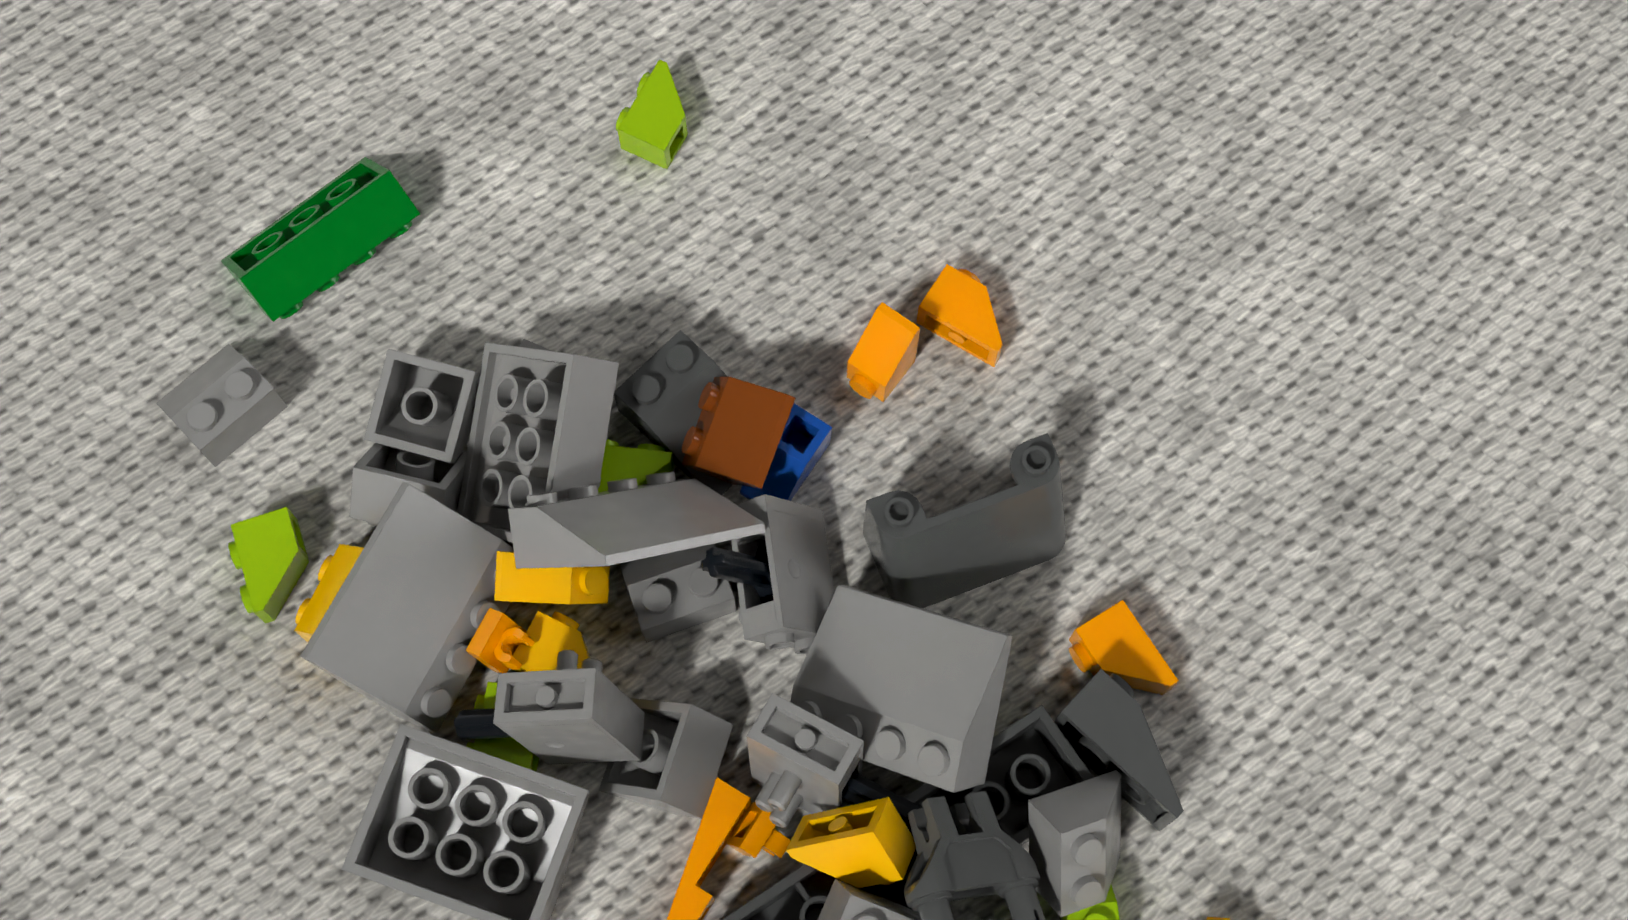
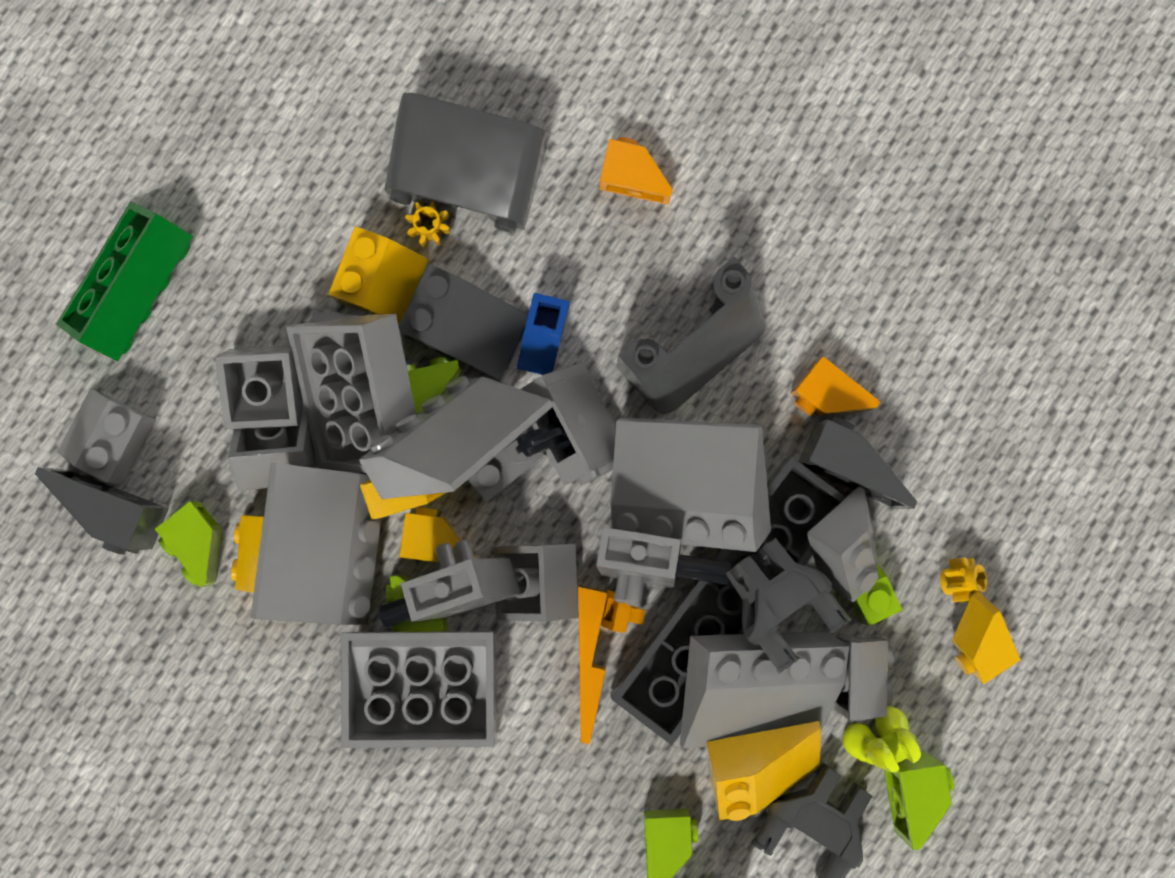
camera: 20 degrees left, 15 degrees up
(195, 496) = (106, 512): none -> dark grey slope
(497, 641) = (385, 546): light orange tile -> none
(614, 322) = (377, 274): none -> yellow slope
(655, 121) = (343, 94): lime slope -> none
(701, 303) = (419, 228): none -> yellow gear
(737, 431) = (501, 330): dark orange slope -> none
(770, 232) = (465, 159): none -> dark grey windscreen
(856, 843) = (696, 607): yellow slope -> none
(883, 353) = (585, 228): light orange slope -> none

